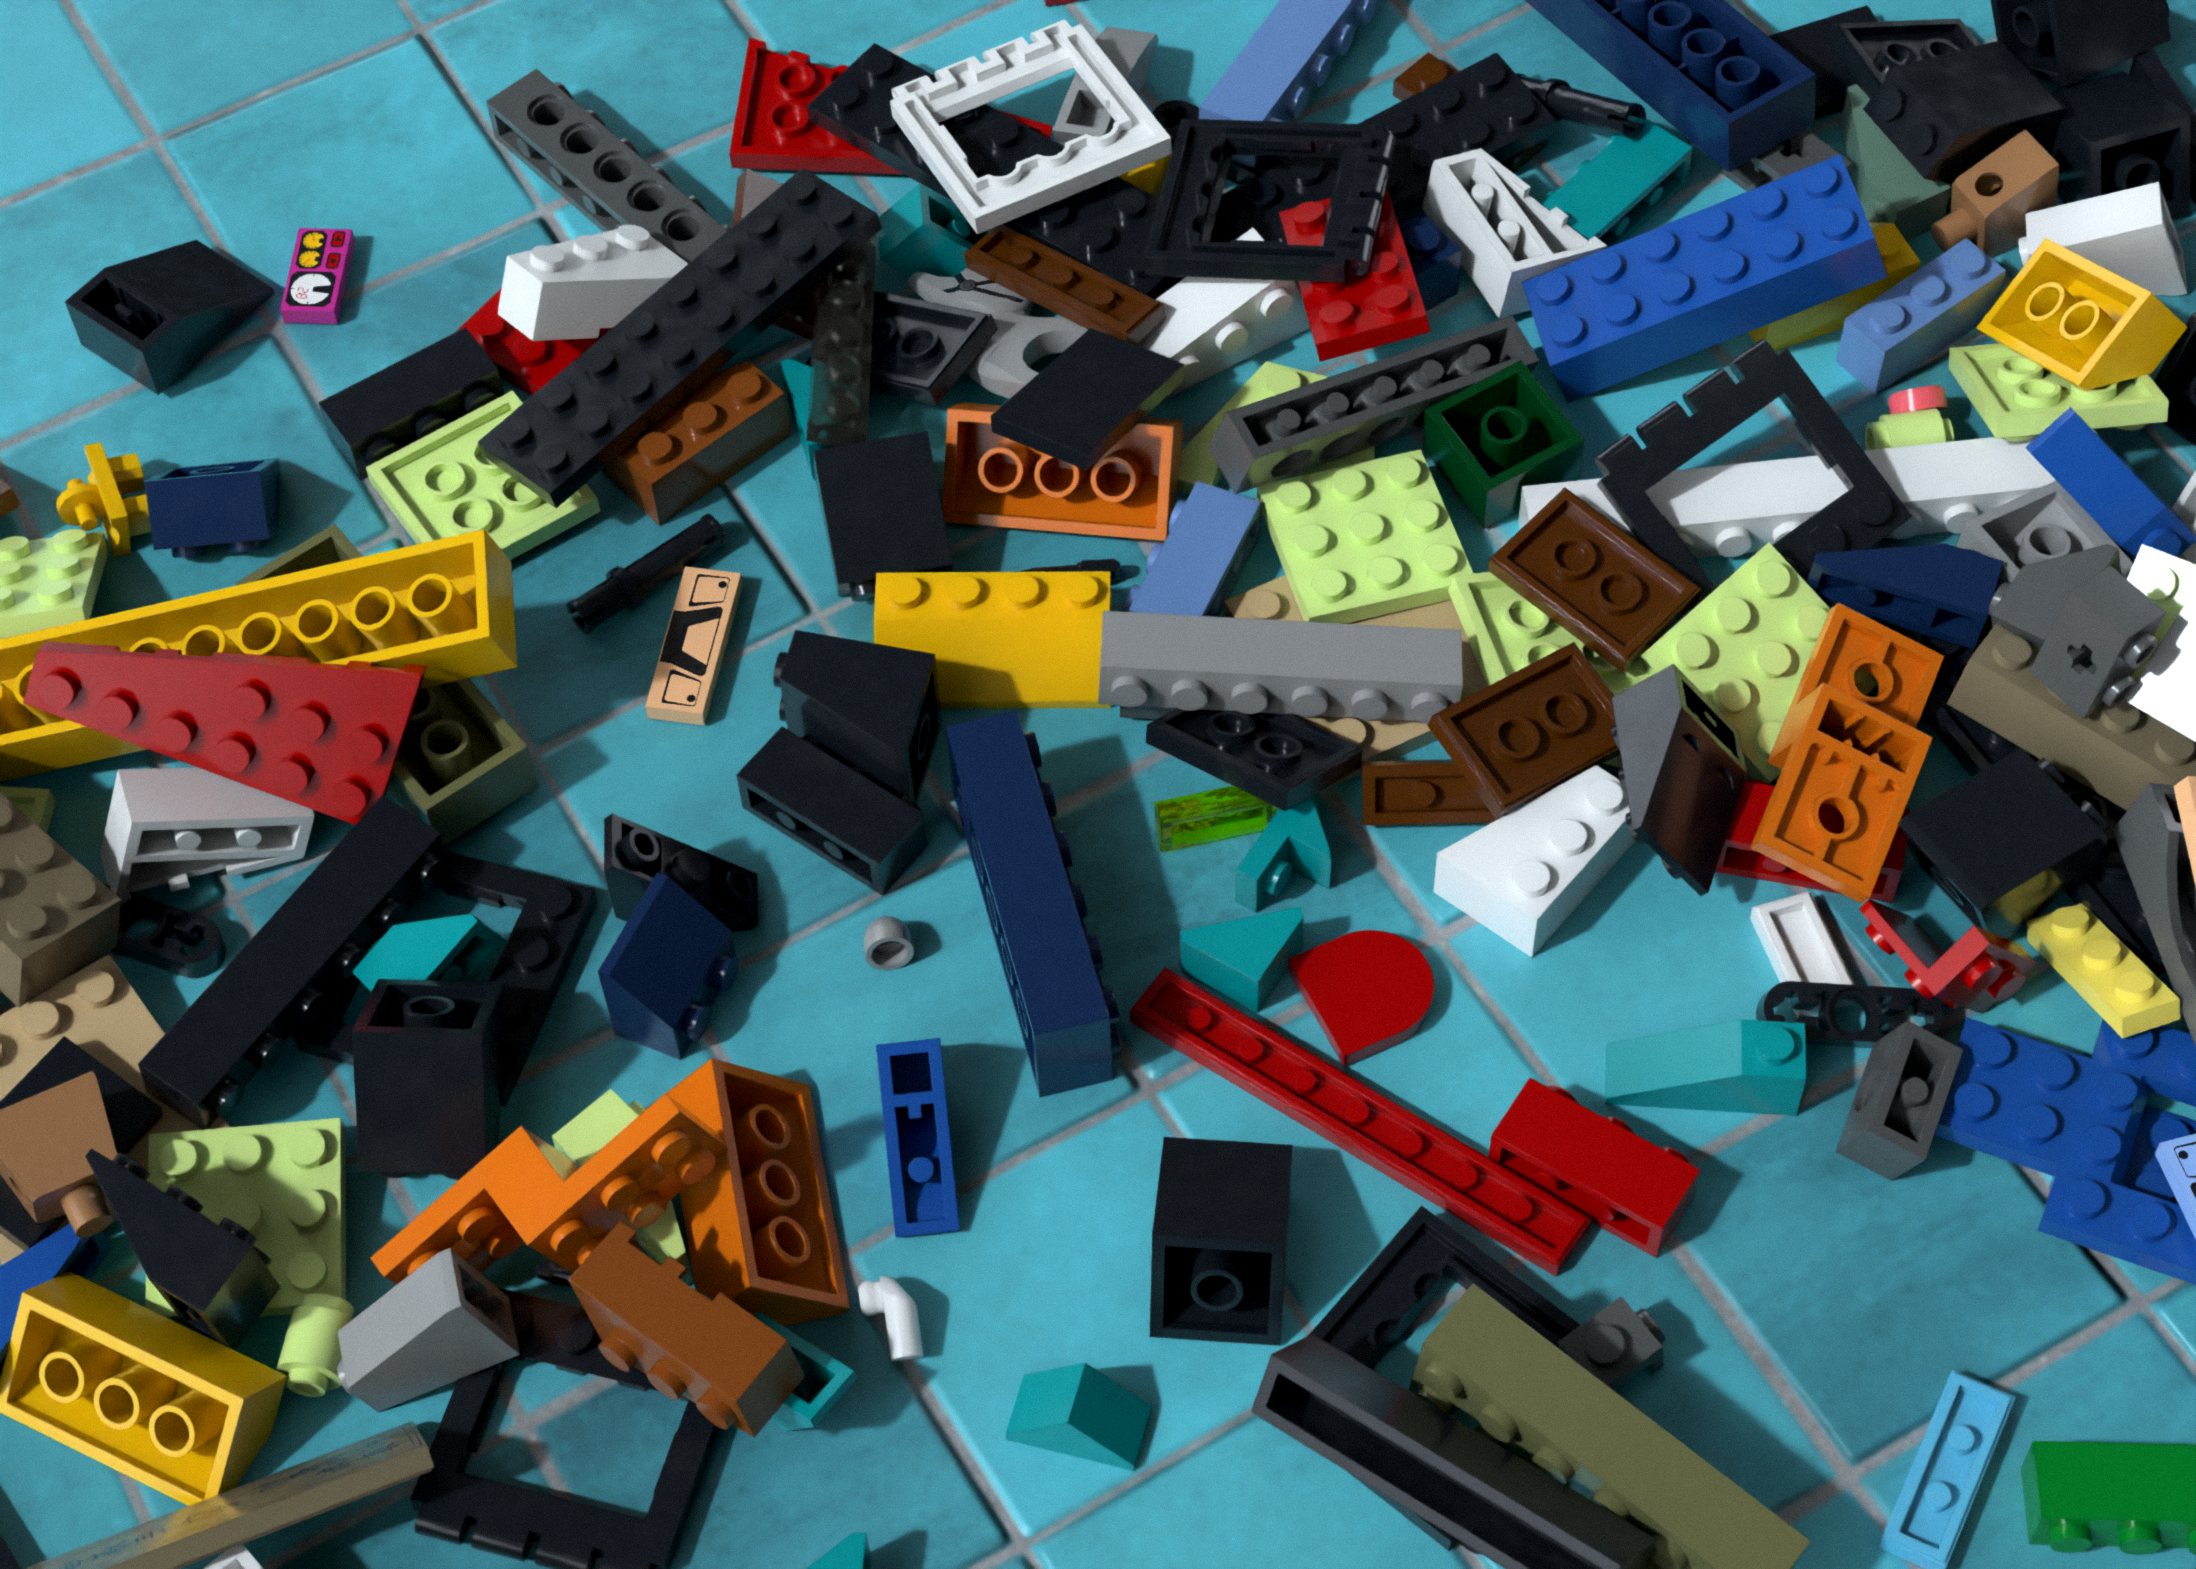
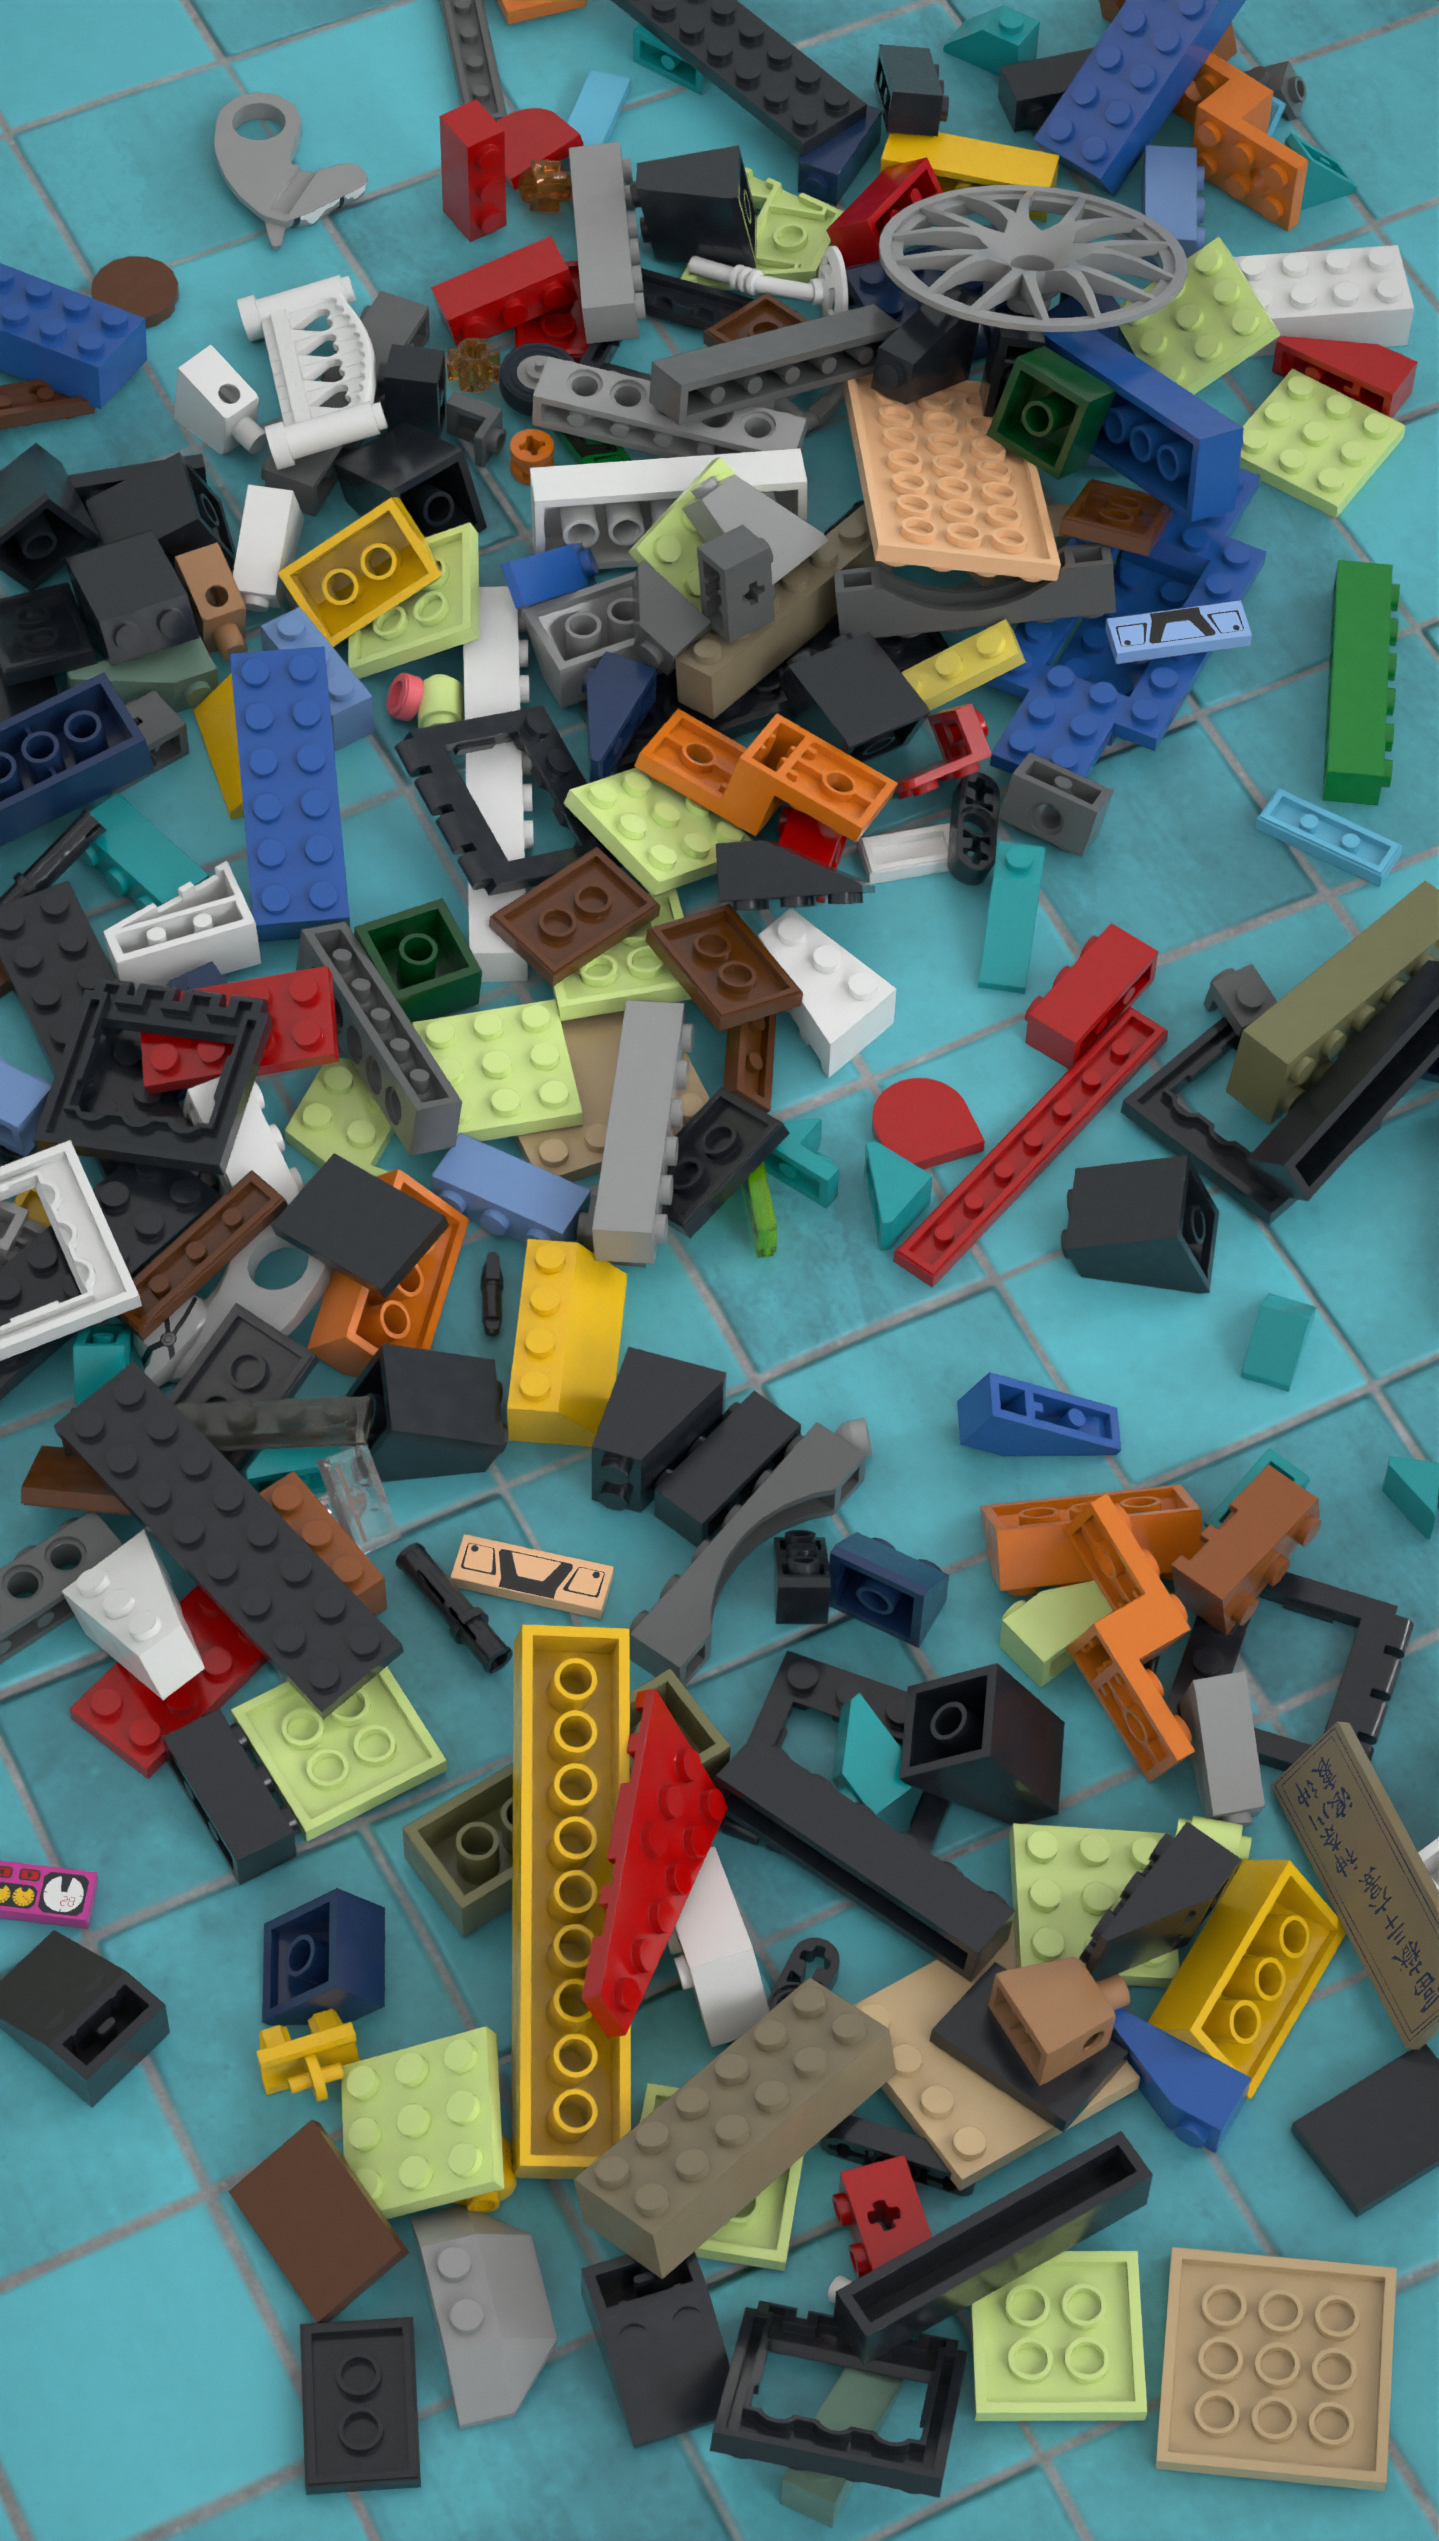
camera: 90 degrees left, 0 degrees up
(761, 461) = (358, 1498): none -> clear tile
(823, 893) = (807, 1485): none -> dark grey arch
(900, 1316) = (1188, 1445): white arm -> none
(1033, 904) = (849, 1320): dark blue brick -> none

